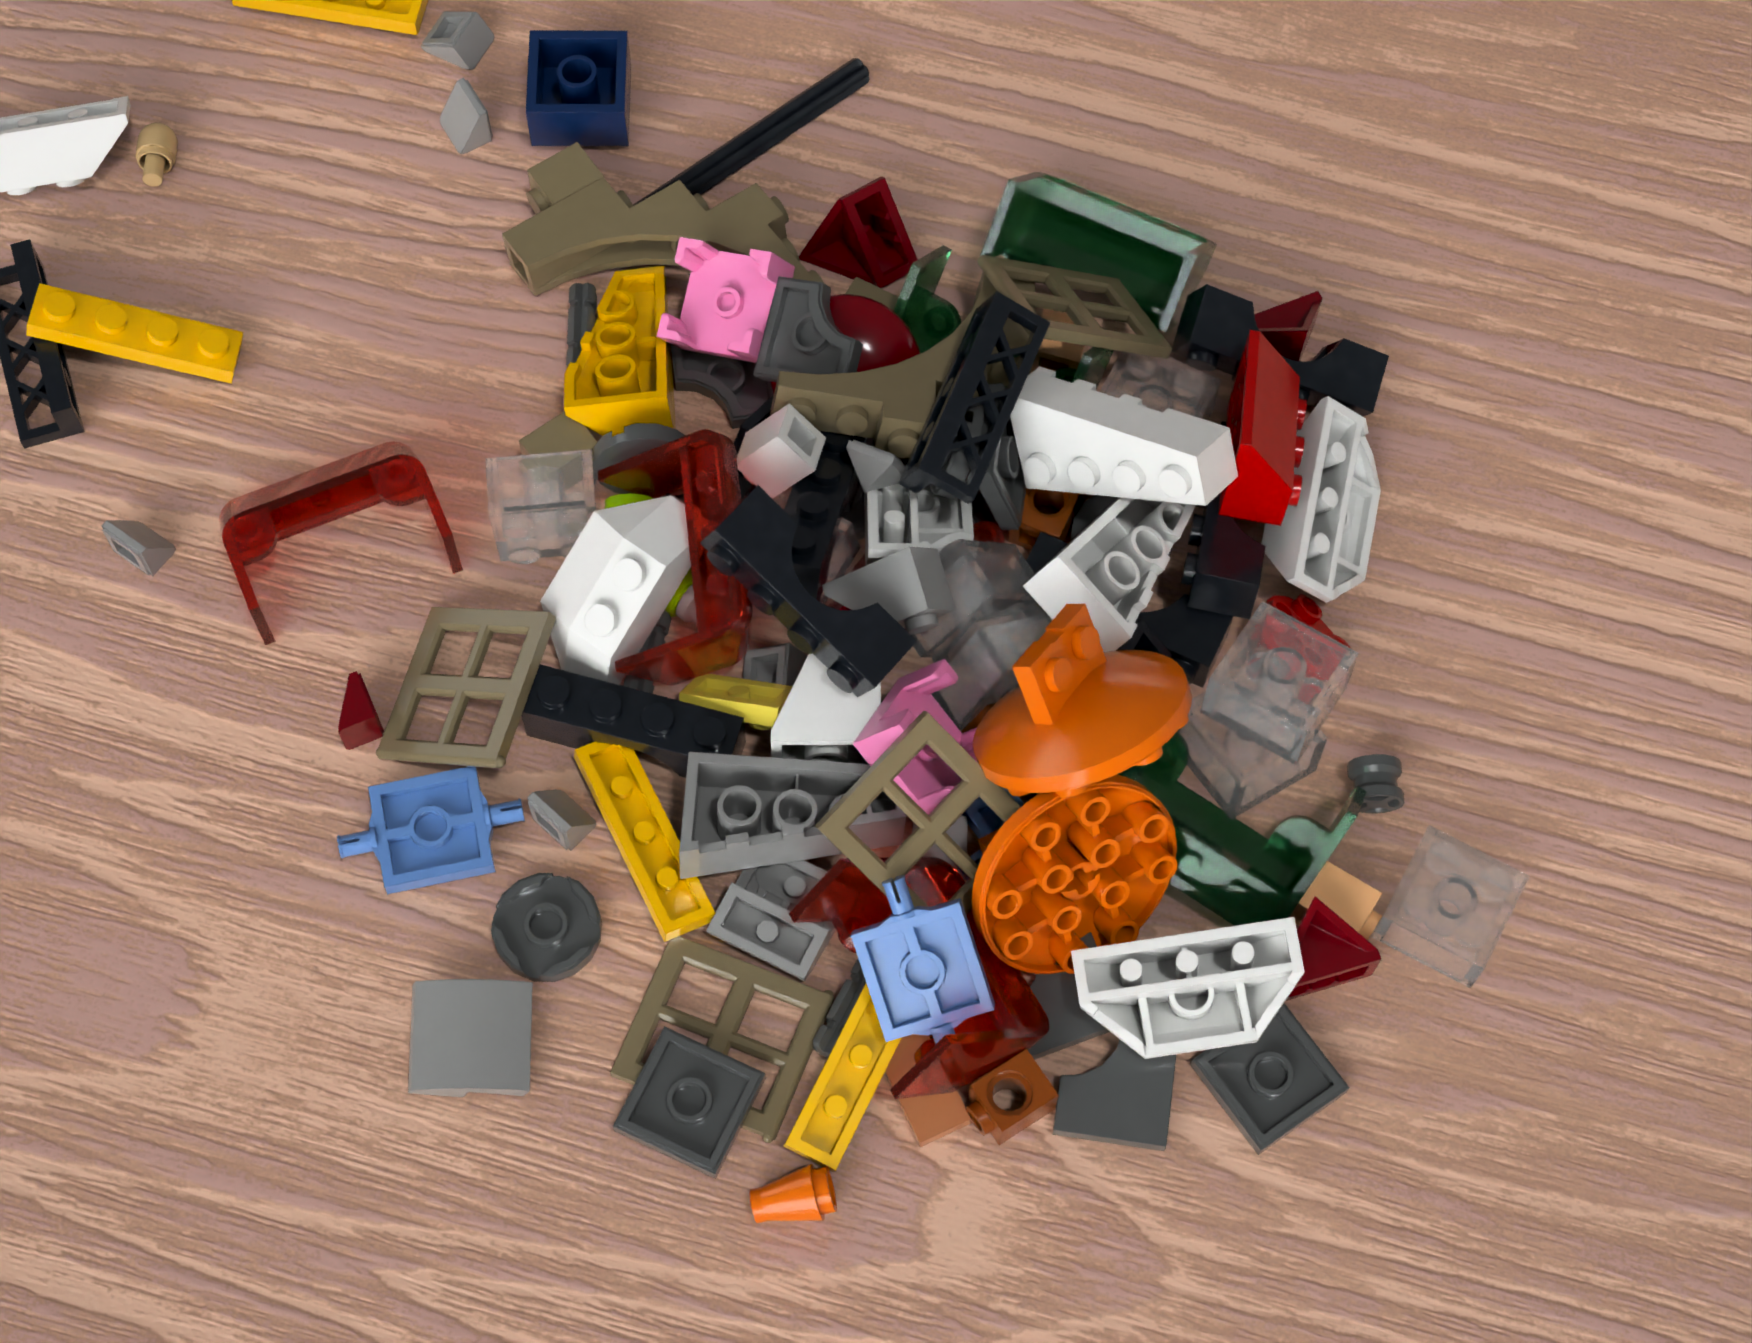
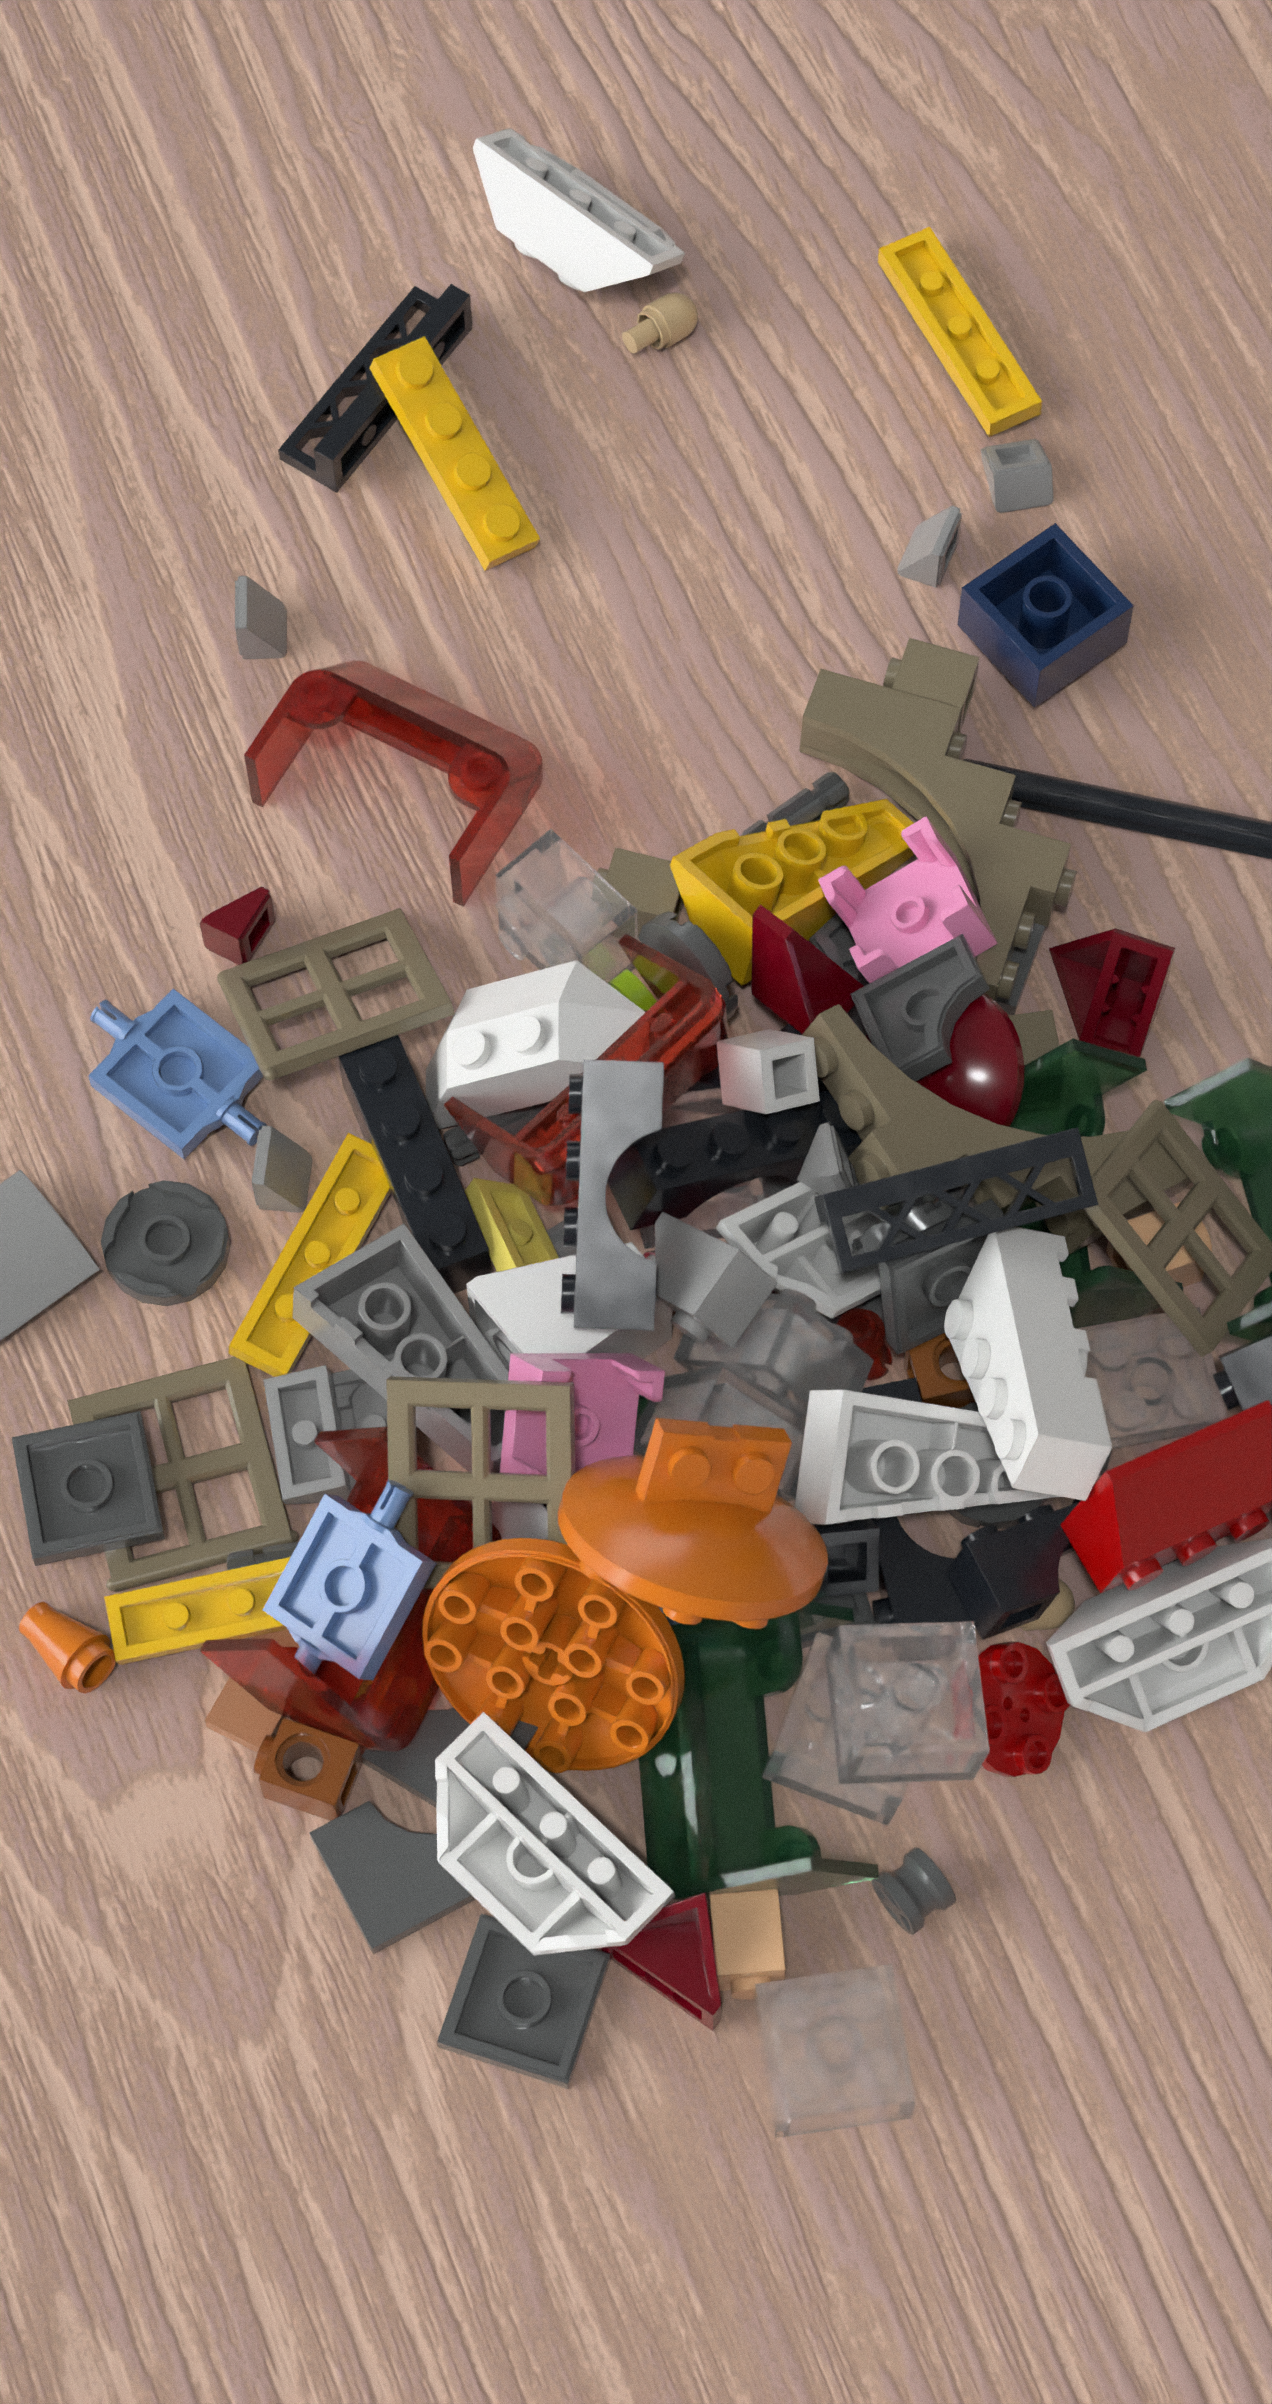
camera: 55 degrees right, 0 degrees up
(713, 396) = (794, 974): none -> dark red slope

